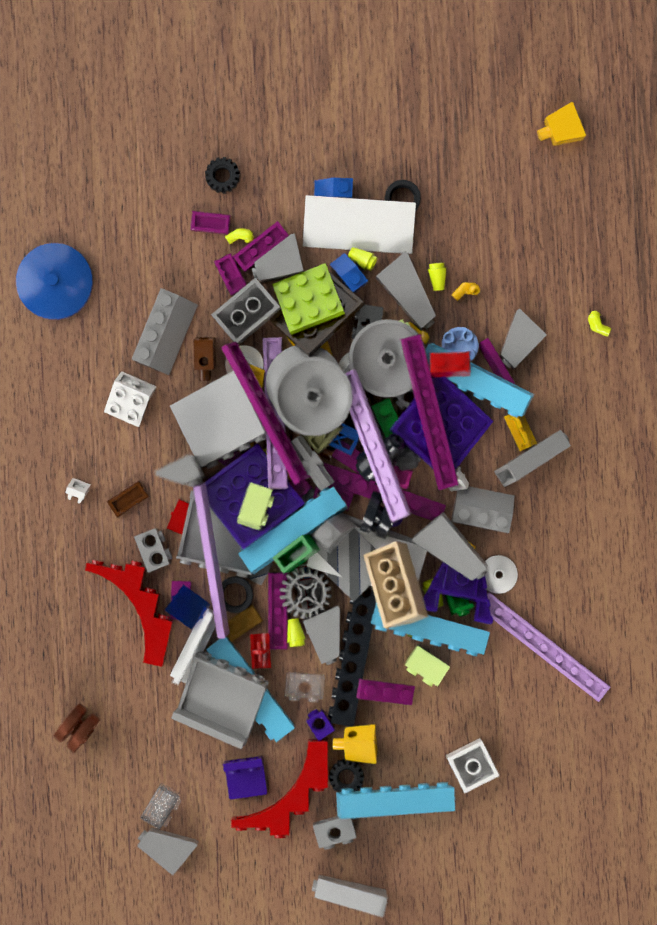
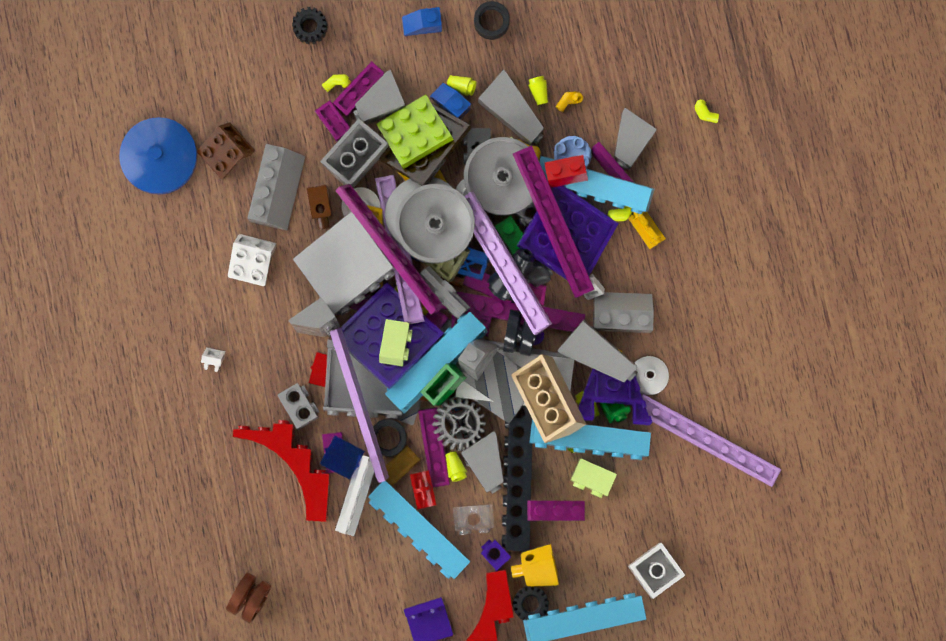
camera: 15 degrees left, 5 degrees down
(120, 286) = (224, 149): none -> reddish brown bracket
(128, 499) = (265, 359): reddish brown tile -> none
(210, 222) = (305, 74): magenta tile -> none
(221, 699) = (391, 544): light grey panel -> none
(359, 224) = (453, 51): white sticker -> none
(495, 413) = (620, 214): none -> neon yellow arm
(532, 458) = (663, 253): light grey slope -> none

